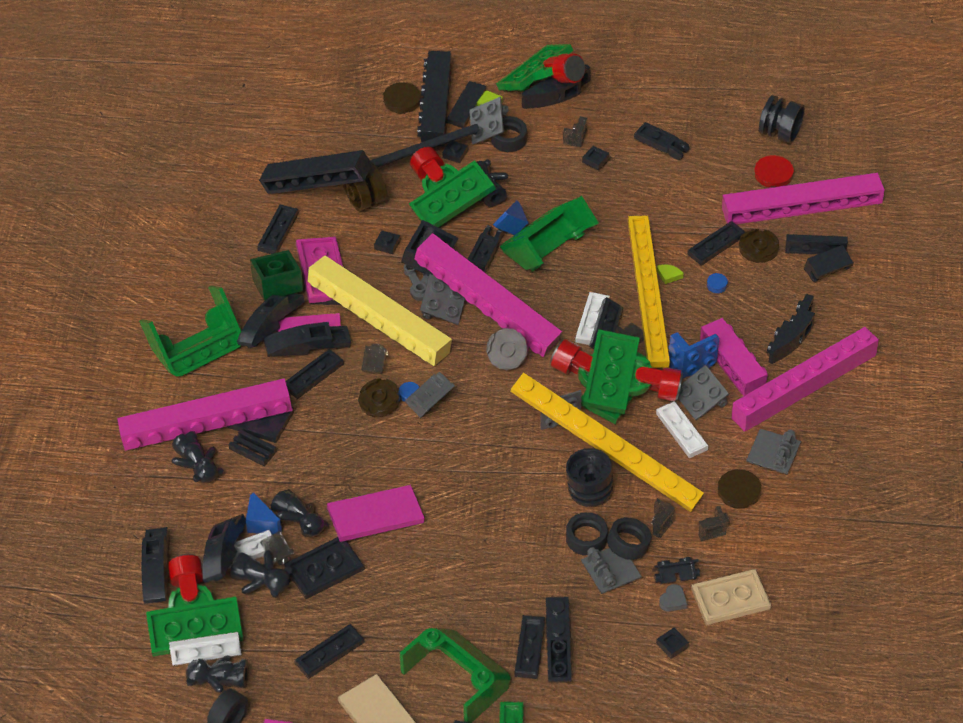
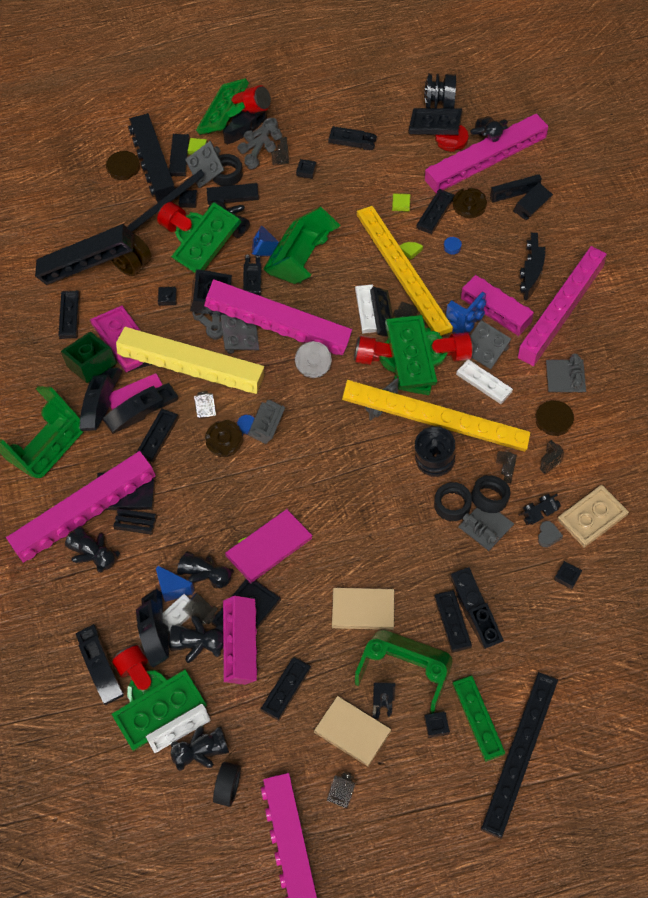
camera: 20 degrees left, 10 degrees up
(302, 587) = (239, 640): none -> dark pink brick
(418, 688) = (382, 697): none -> black hinge
(443, 604) = (363, 608): none -> tan tile
(506, 160) = (233, 193): none -> black tile
(574, 104) = (268, 126): none -> dark grey plant
(683, 222) = (401, 202): none -> lime tile
(762, 149) = (435, 121): none -> black tile
(816, 172) = (489, 127): none -> black piece

